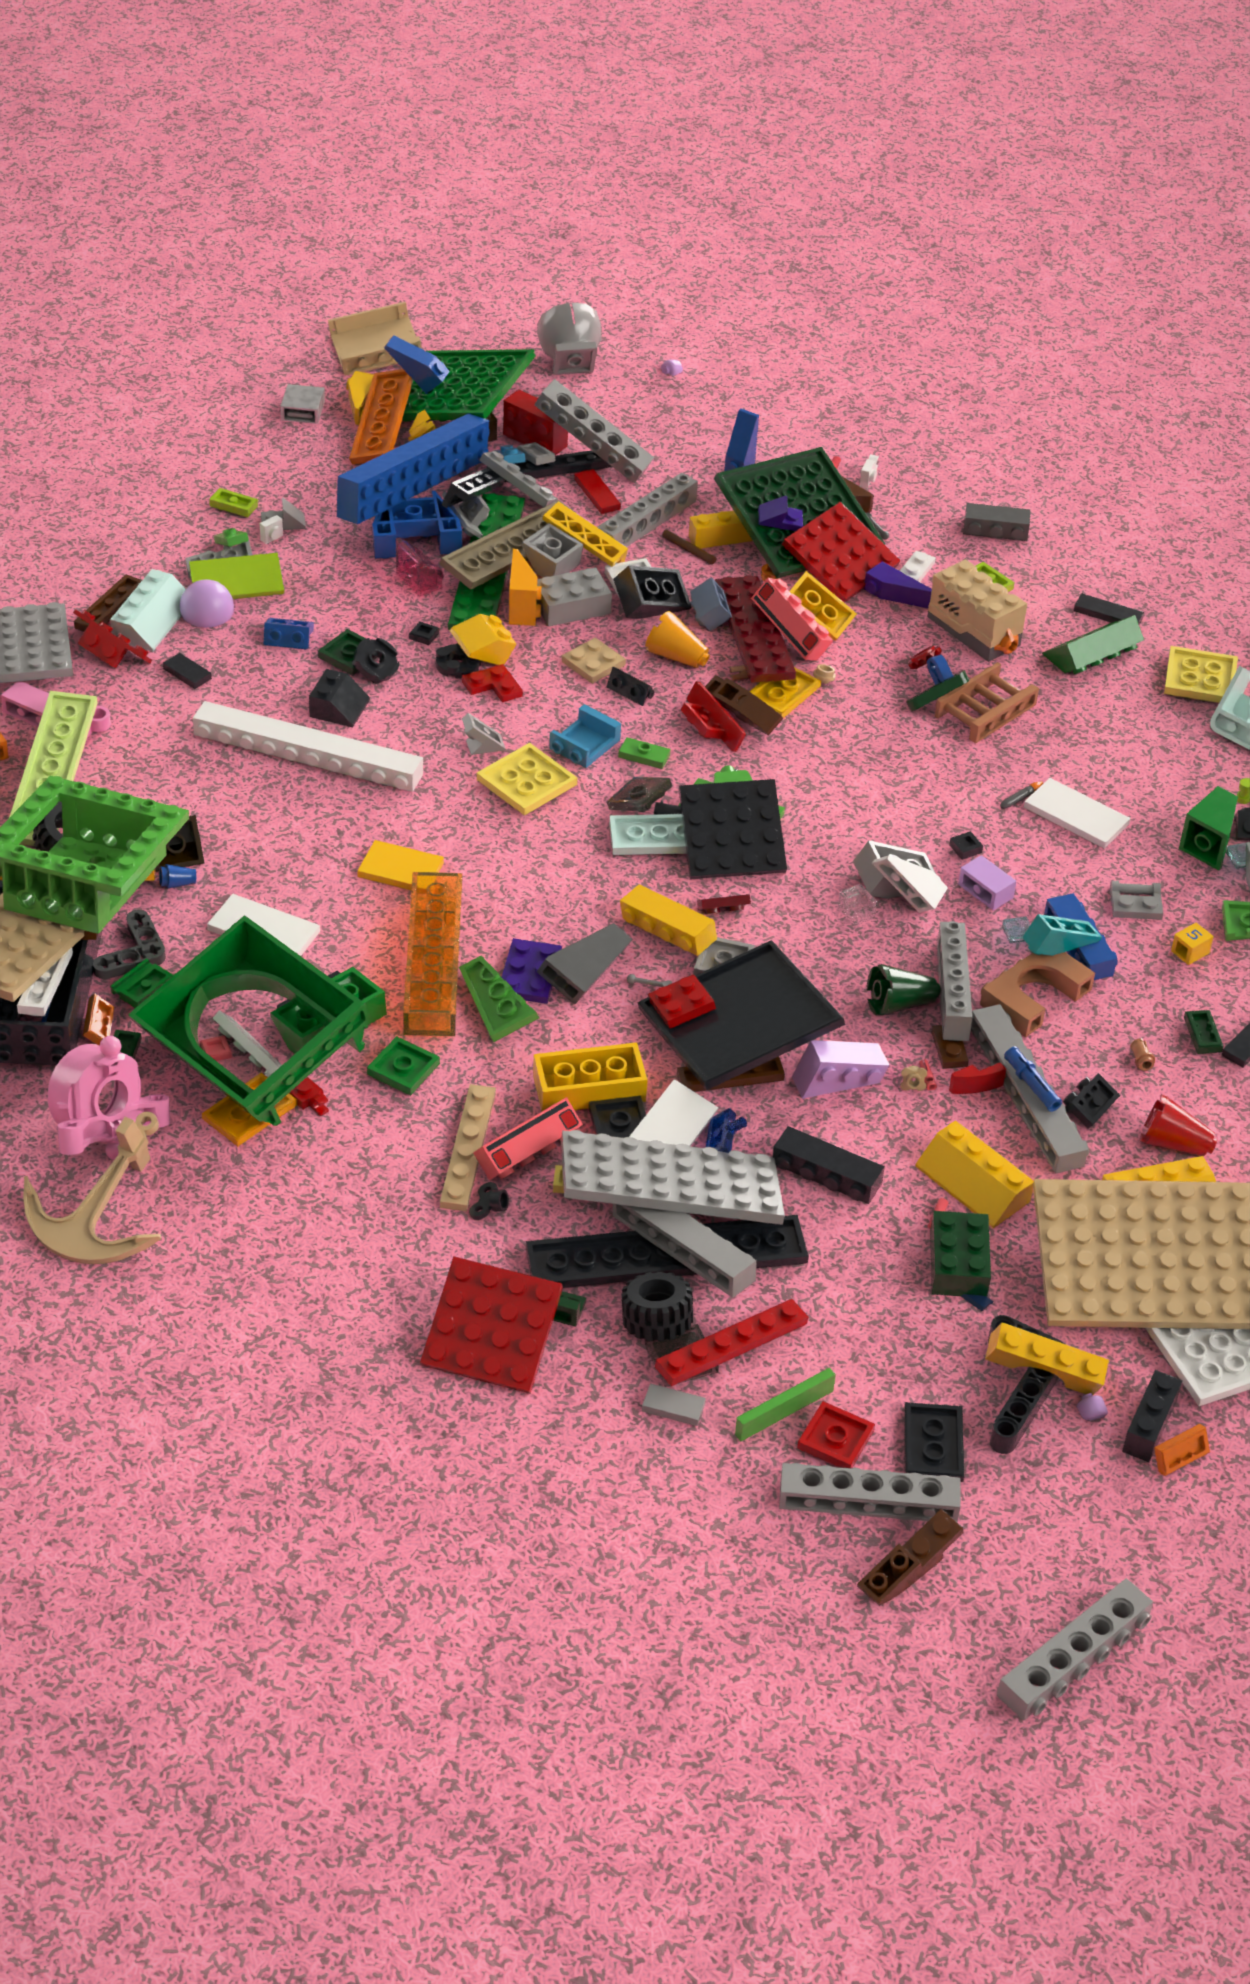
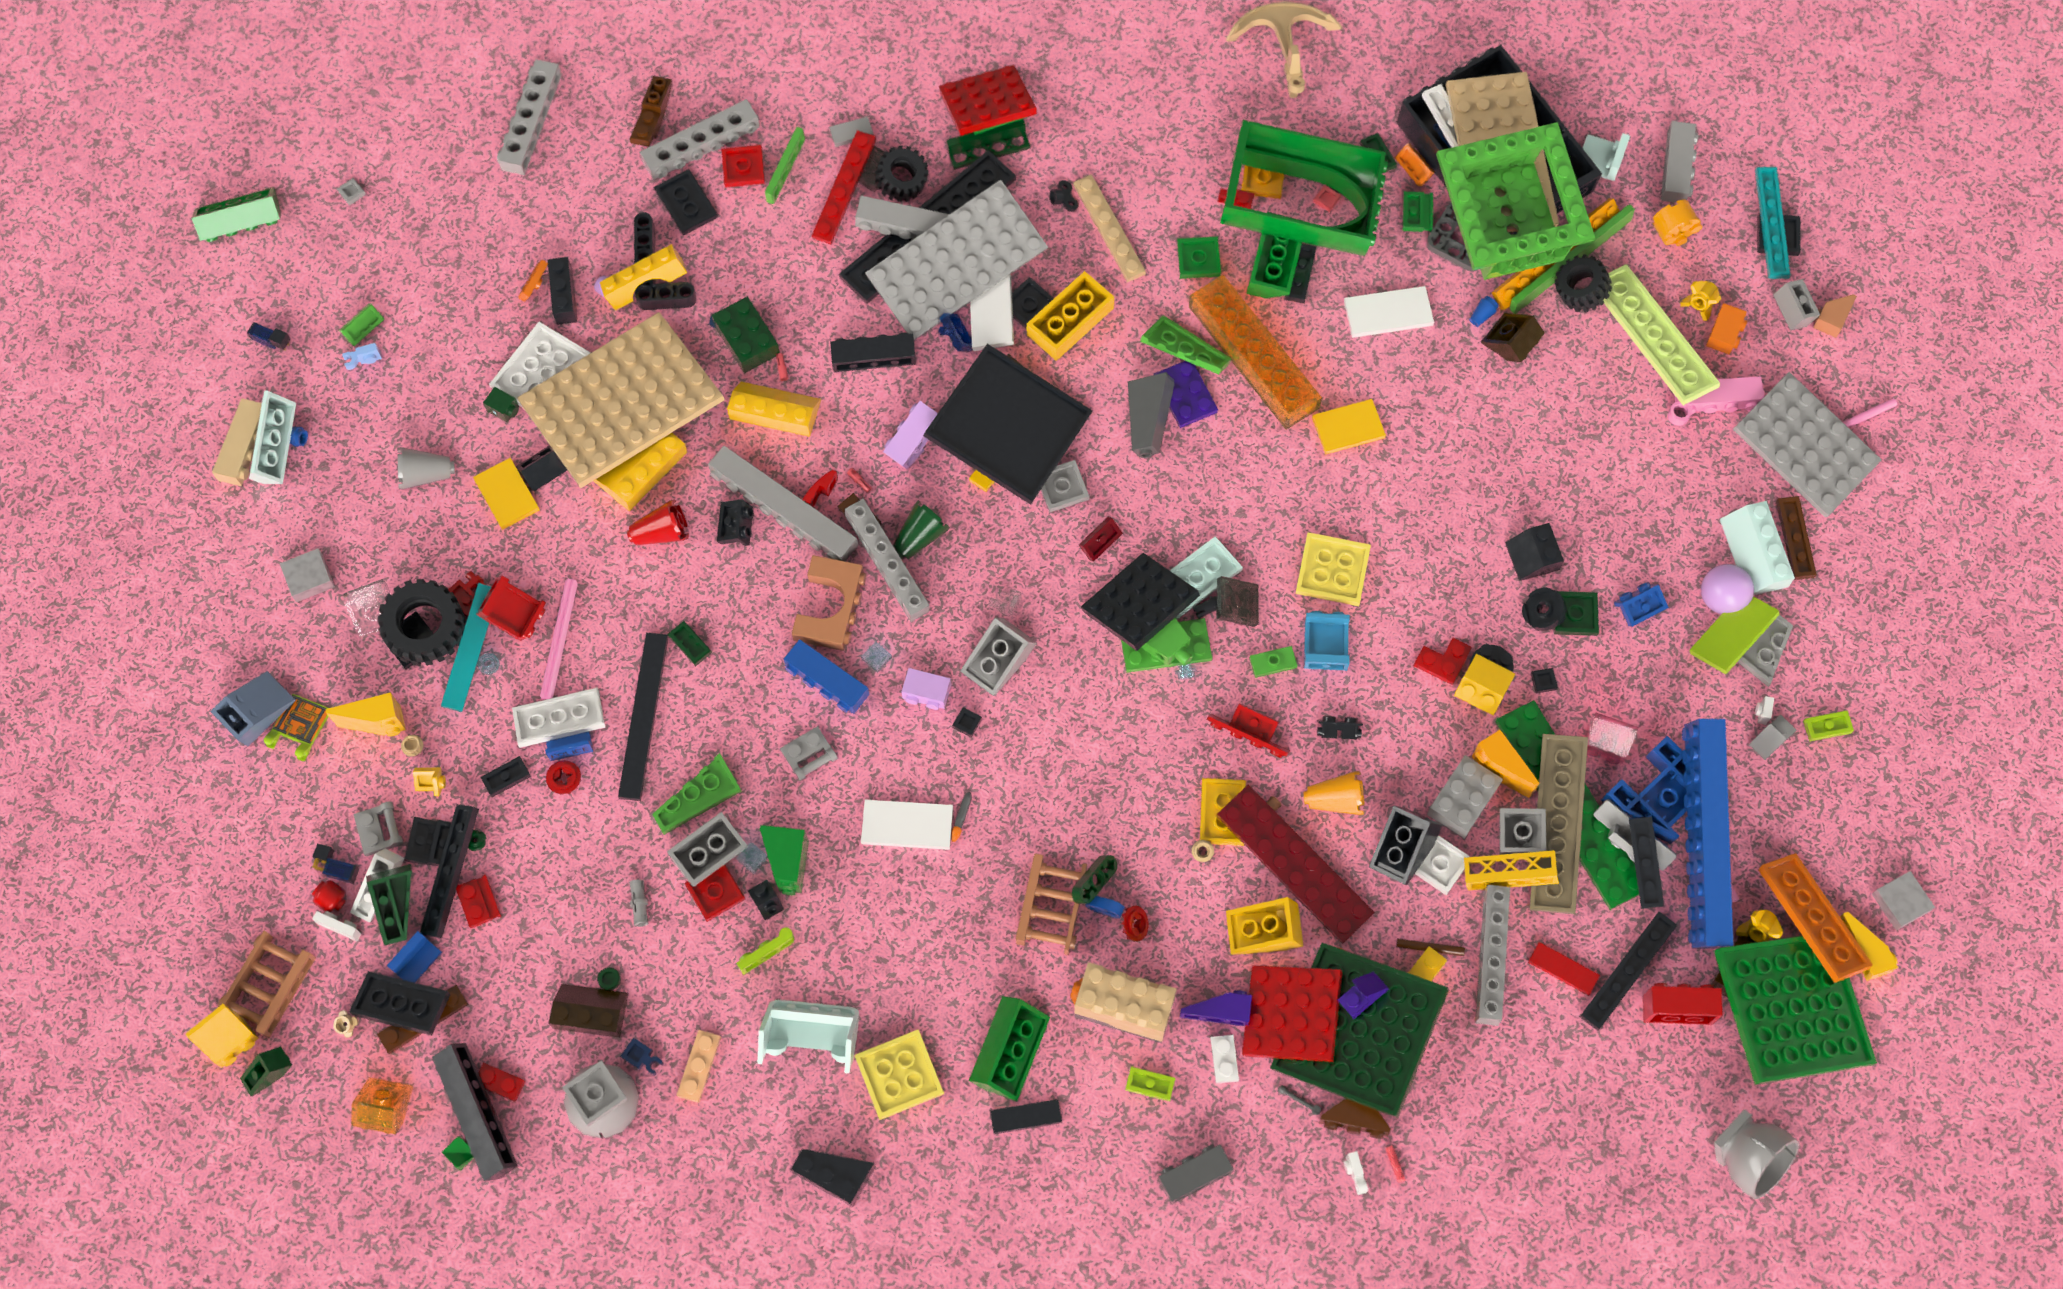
camera: 150 degrees right, 25 degrees up
(76, 1090) = (1340, 86): bright pink piece -> none
(105, 644) = (1751, 489): red bracket -> none
(187, 670) = (1673, 512): black tile -> none
(231, 537) = (1783, 673): bright green plate -> none
(246, 1042) = (1301, 207): white plate -> none
(308, 746) = (1511, 488): white brick -> none
(362, 337) = (1930, 1042): tan panel -> none
(418, 363) = (1835, 975): blue slope -> none
(481, 736) = (1399, 586): light grey slope -> none
(511, 454) = (1669, 952): dark azure plate -> none
(523, 482) = (1631, 916): light grey plate -> none
(526, 1140) = (1071, 245): coral brick -> none
(536, 453) = (1647, 966): light grey tile -> none
(593, 660) = (1392, 742): tan plate -> none
(594, 431) = (1671, 1001): light grey brick -> none
(632, 979) = (1080, 429): light grey hinge -> none
(668, 920) = (1122, 486): yellow brick -> none
(672, 367) = (1652, 1221): lavender piece -> none
(681, 1001) = (1057, 415): red plate -> none
(710, 604) = (1348, 864): sand blue brick -> none
(743, 441) = (1478, 1097): blue slope -> none
(744, 704) = (1232, 753): reddish brown slope -> none
(792, 619) = (1265, 877): coral brick -> none
(913, 1072) = (864, 463): tan plate -> none
(916, 884) = (973, 629): white slope -> none
(1027, 1071) = (784, 496): blue pin -> none
(1057, 935) = (830, 642): teal slope -> none
(1144, 1059) = (721, 591): nougat pin -> none
(1192, 943) = (740, 726): yellow brick -> none

